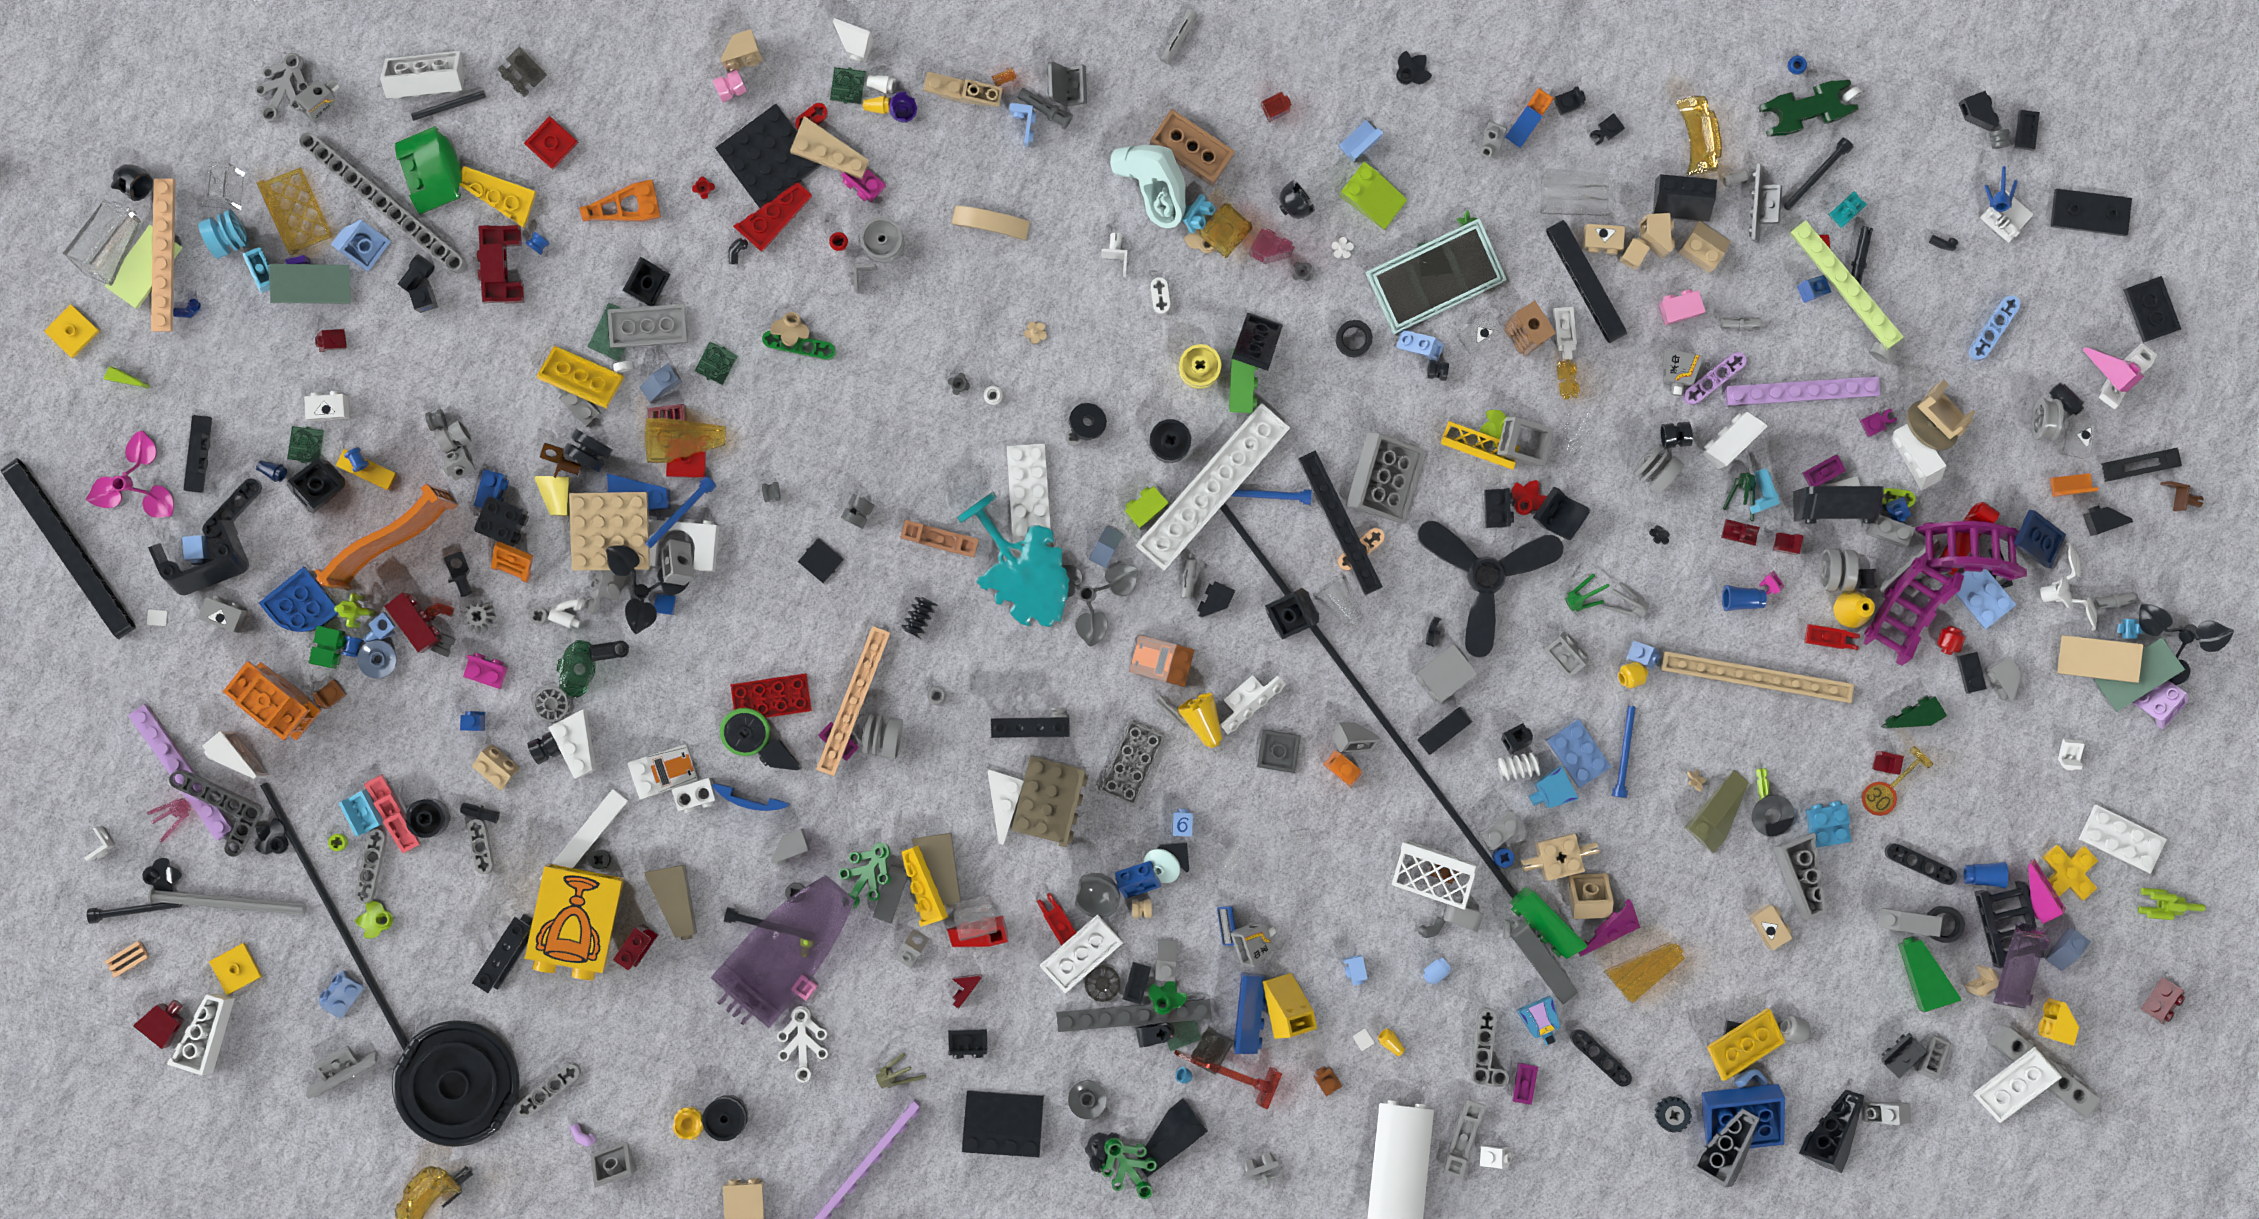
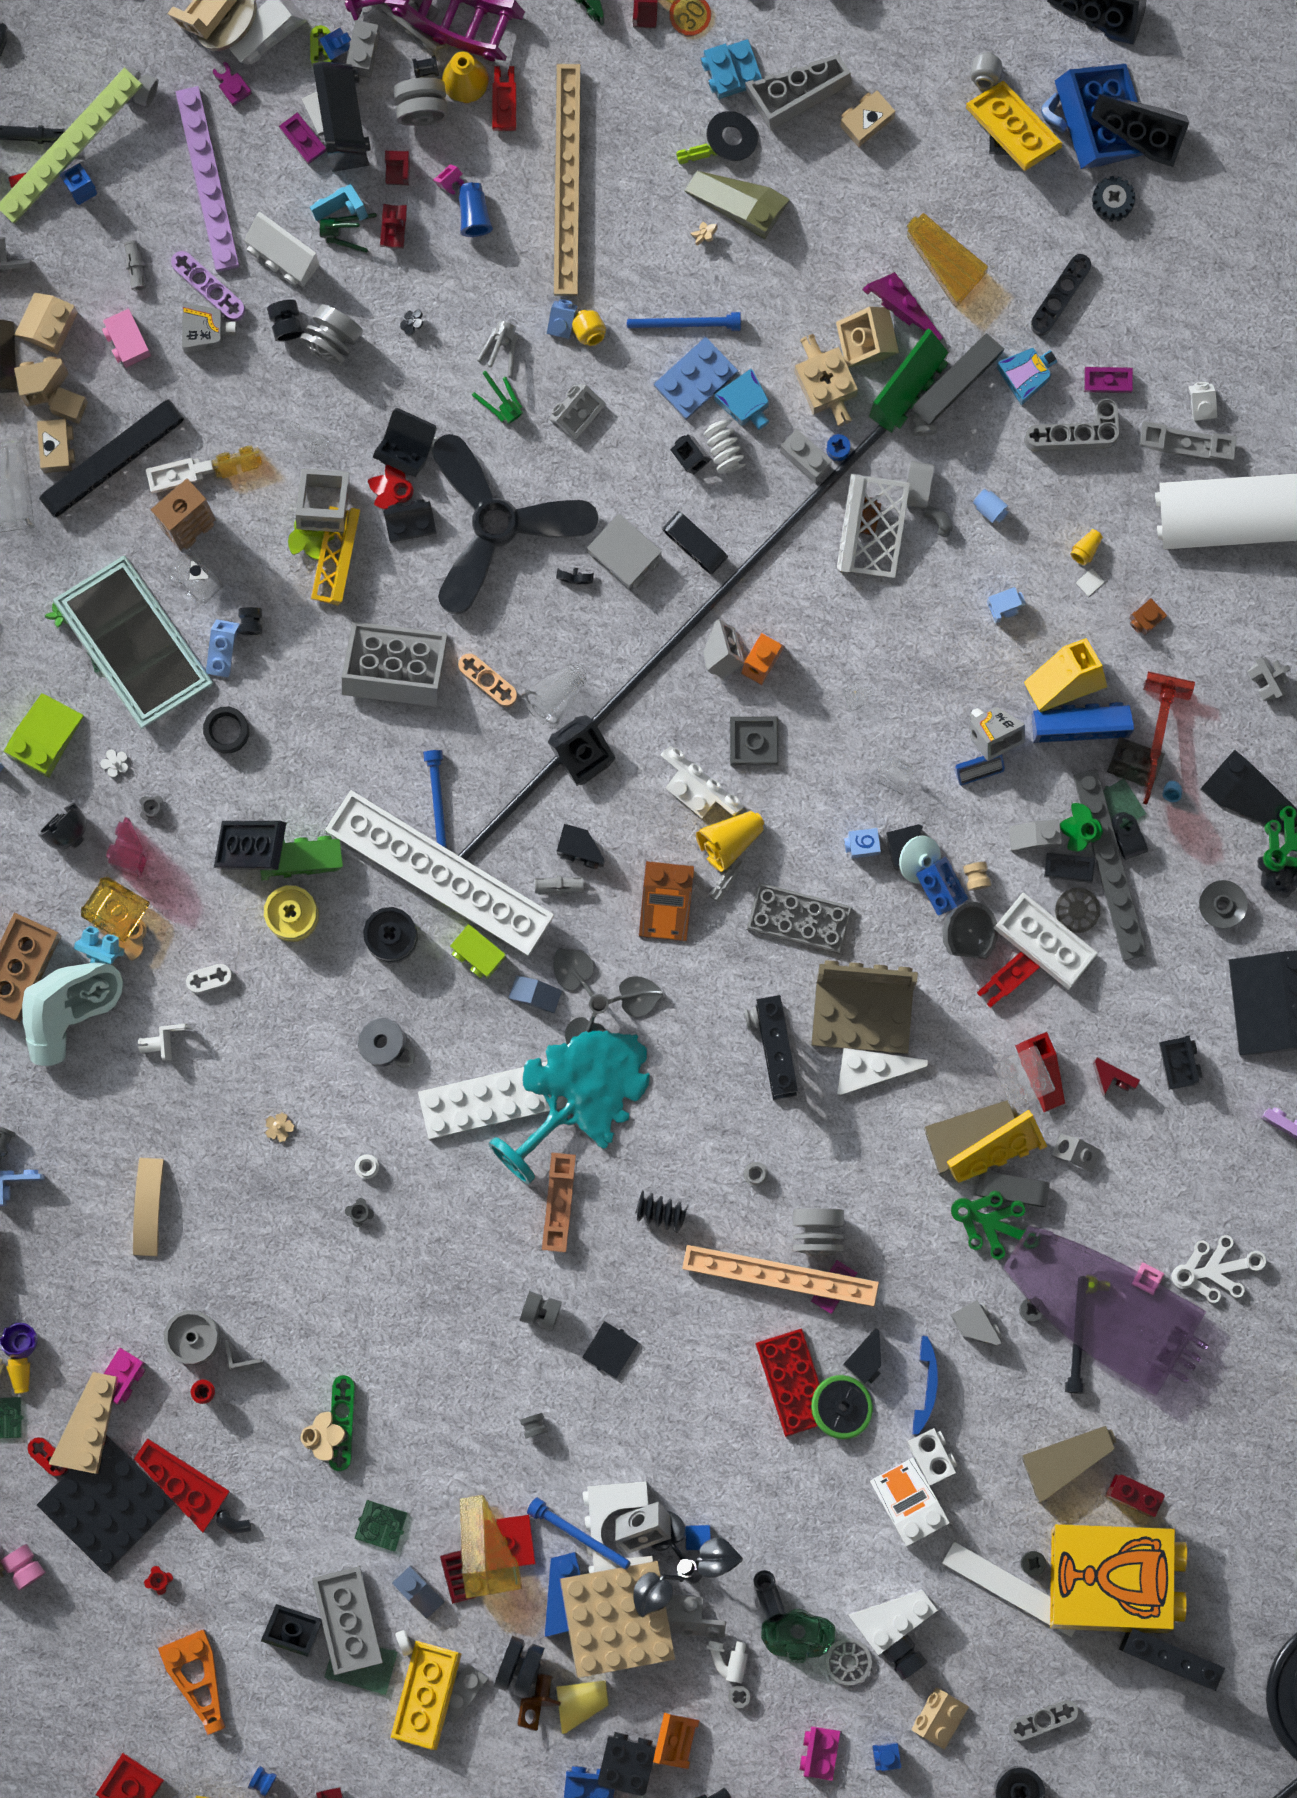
camera: 90 degrees left, 5 degrees down
(473, 620) = (755, 1780): light grey gear -> none
(480, 812) = (1001, 1728): black axle -> none
(886, 1077) = (1241, 1155): olive plant -> none
(1340, 523) = (459, 709): black plate -> none

